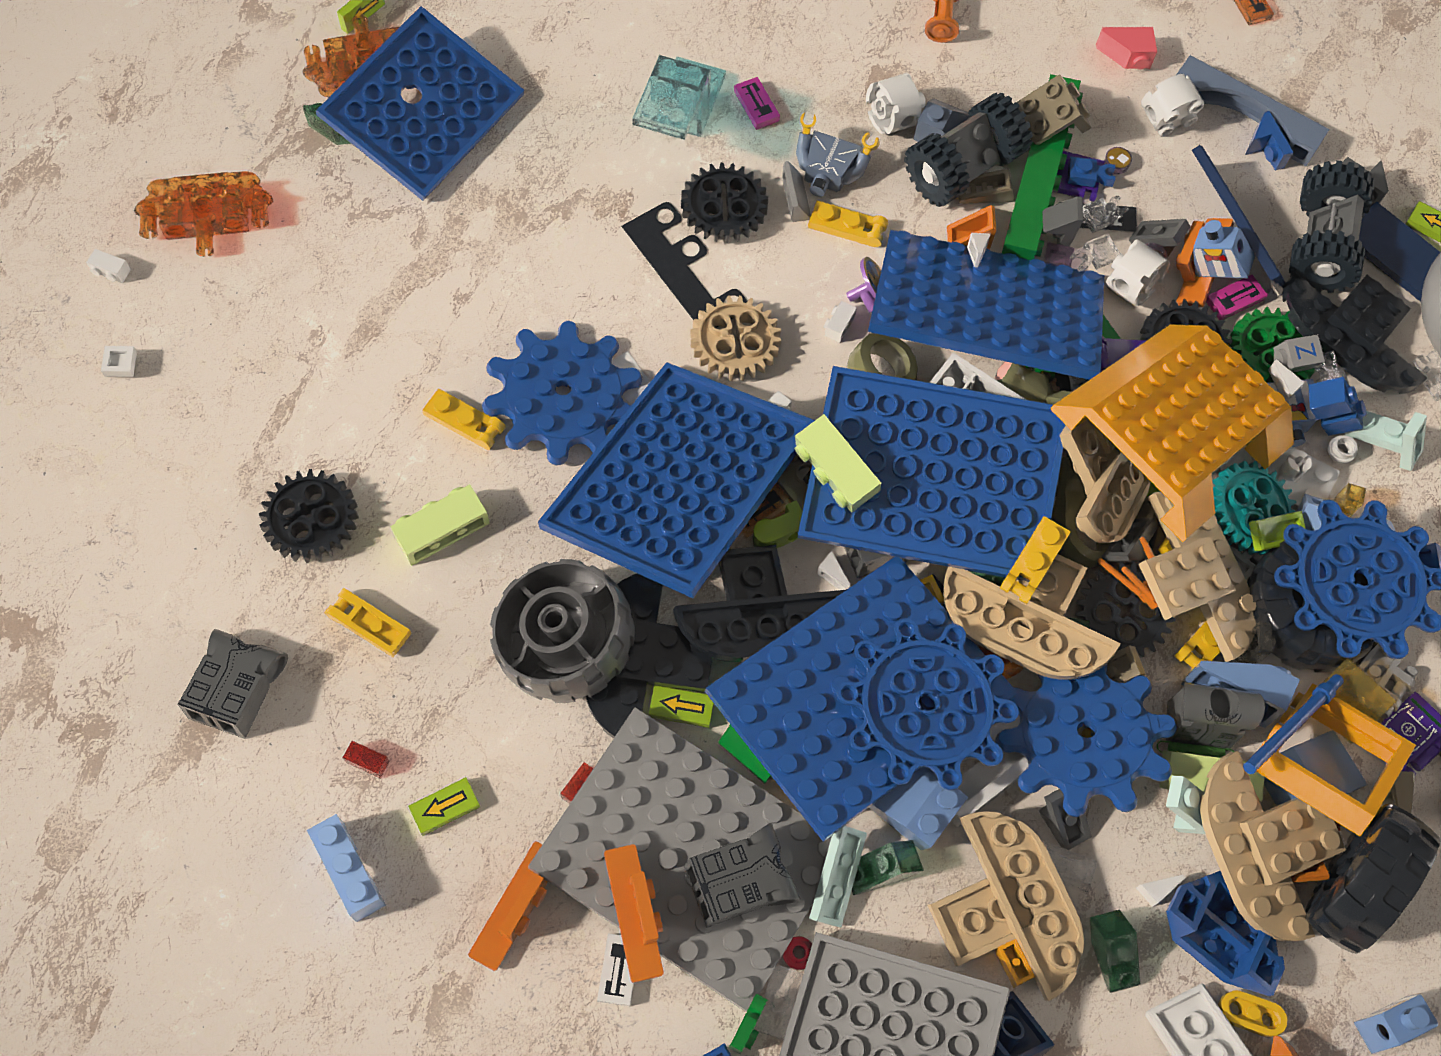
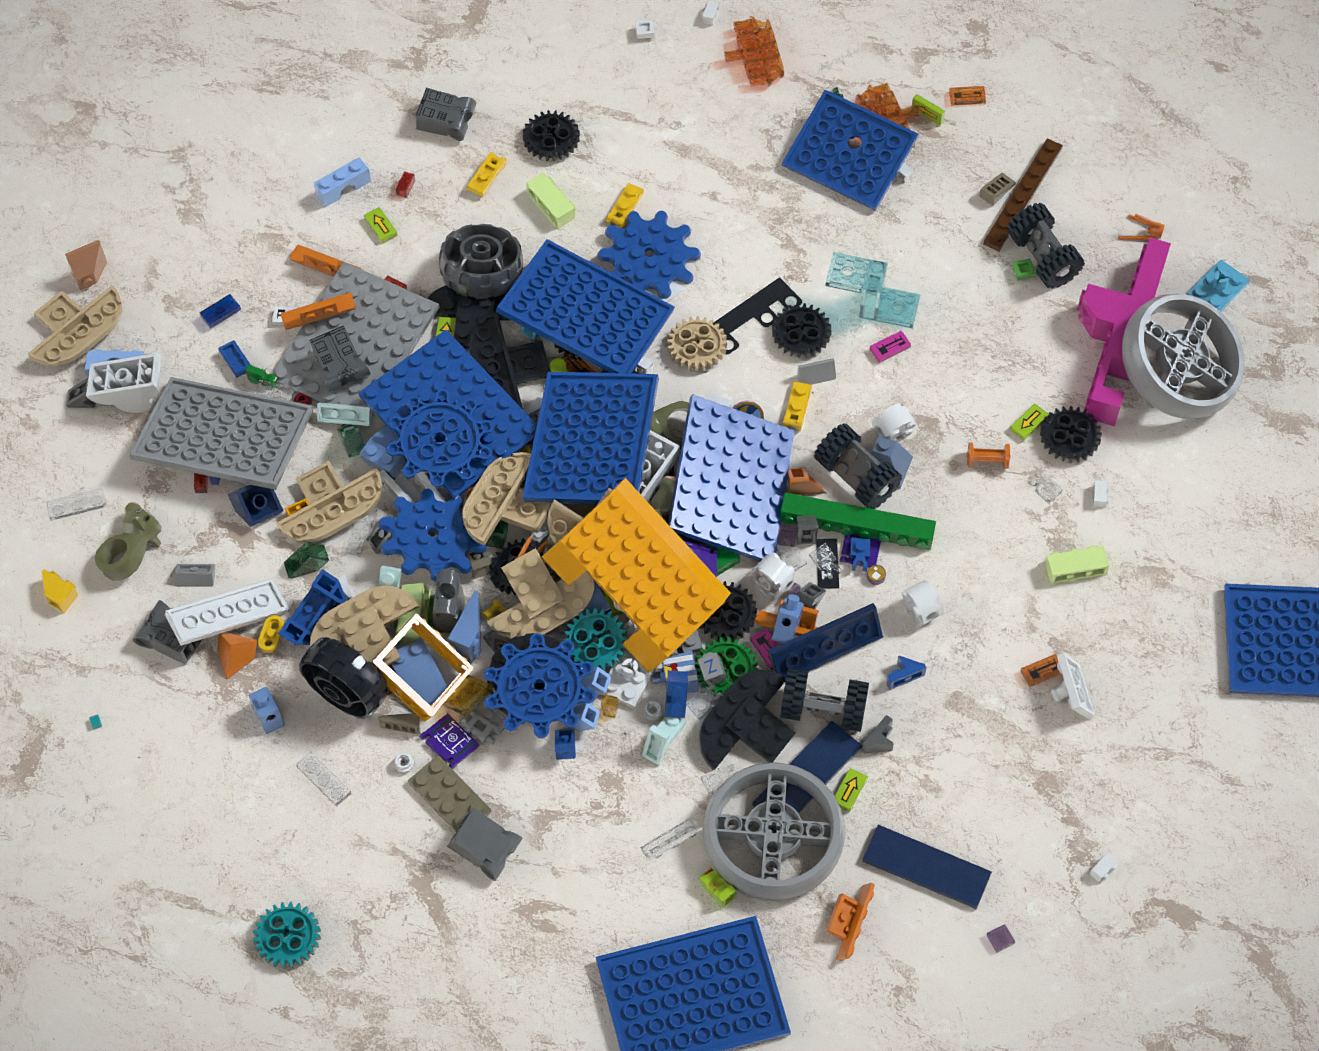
camera: 90 degrees right, 5 degrees down
(830, 160) = (844, 387): sand blue torso -> none
(836, 464) = (589, 380): yellowish green brick -> none
(977, 246) = (779, 475): white piece -> none
(994, 195) = (842, 487): dark tan slope -> none
(1035, 559) = (533, 490): yellow plate -> none
(1054, 109) = (898, 518): dark tan bracket -> none
(1128, 46) = (978, 582): coral slope -> none
(1222, 90) = (913, 691): sand blue arch -> none
(1268, 532) = (580, 650): lime tile -> none
(1285, 380) = (689, 662): white piece -> none
(1320, 696) = (463, 666): blue bar -> none

